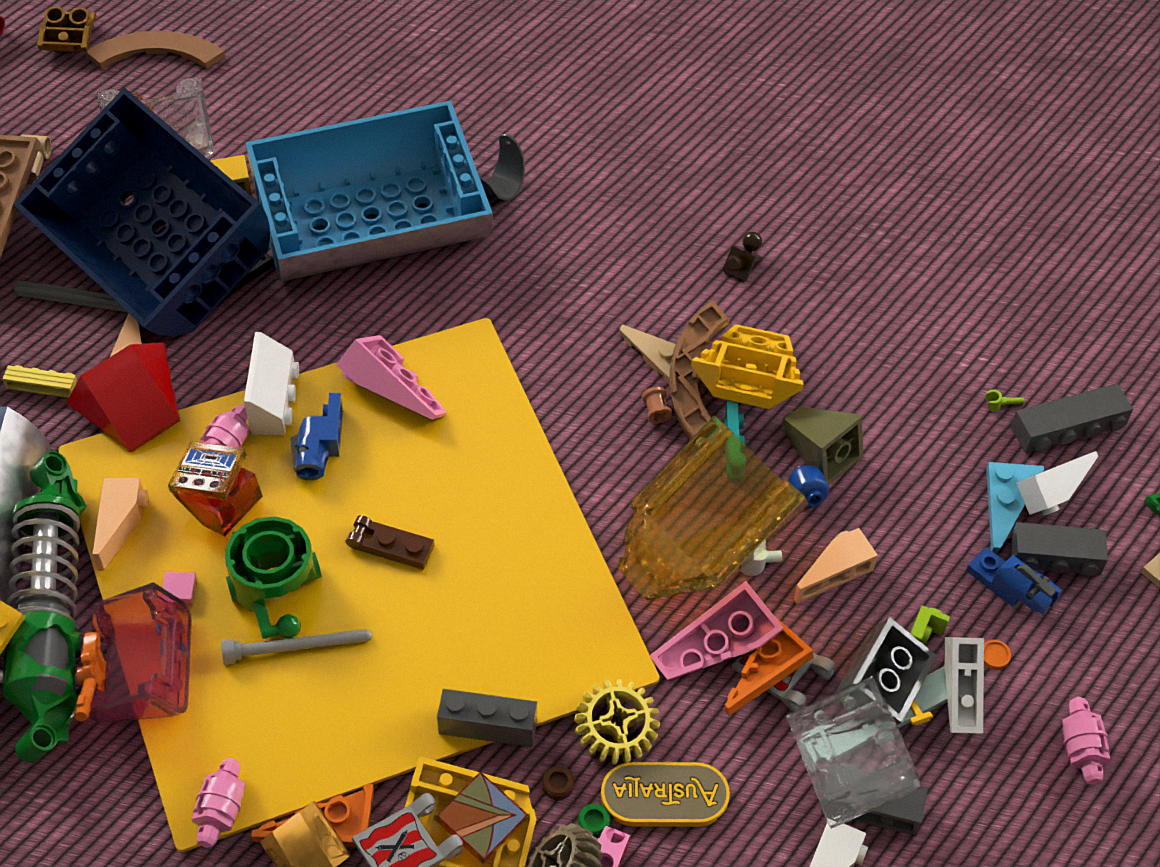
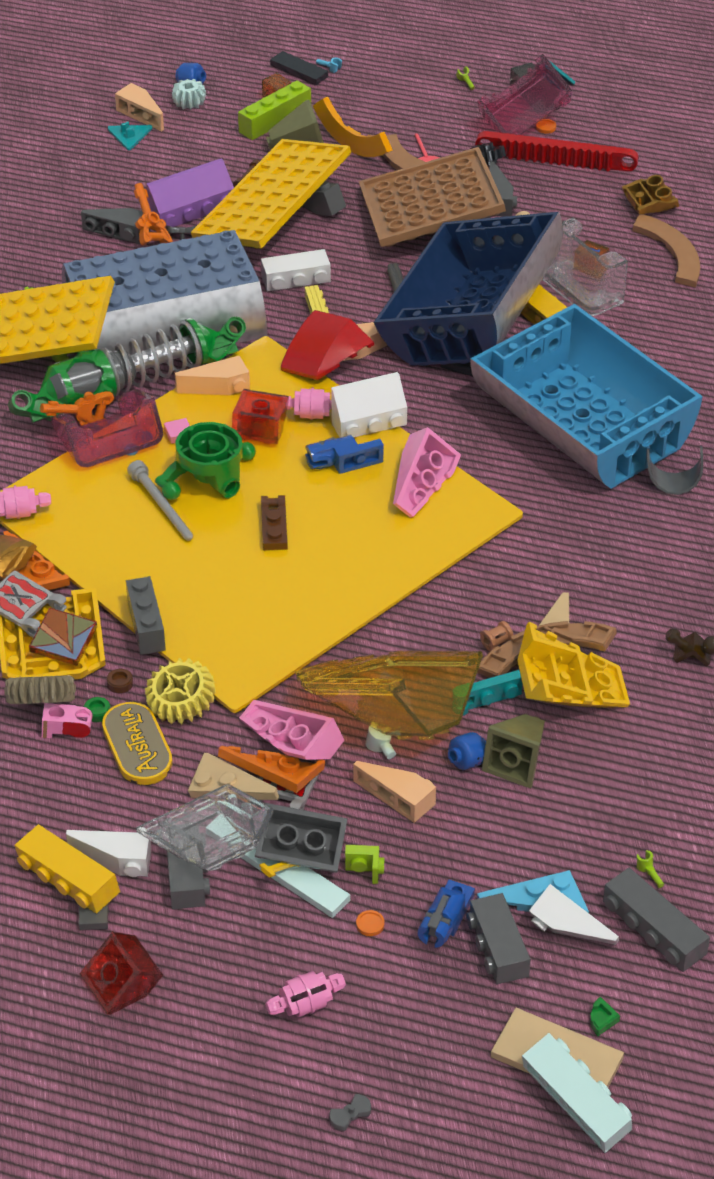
camera: 70 degrees right, 10 degrees down
(207, 470) = (267, 396): tile -> none
(763, 724) = (215, 773): none -> tan wing
(965, 683) = (320, 891): white slope -> none

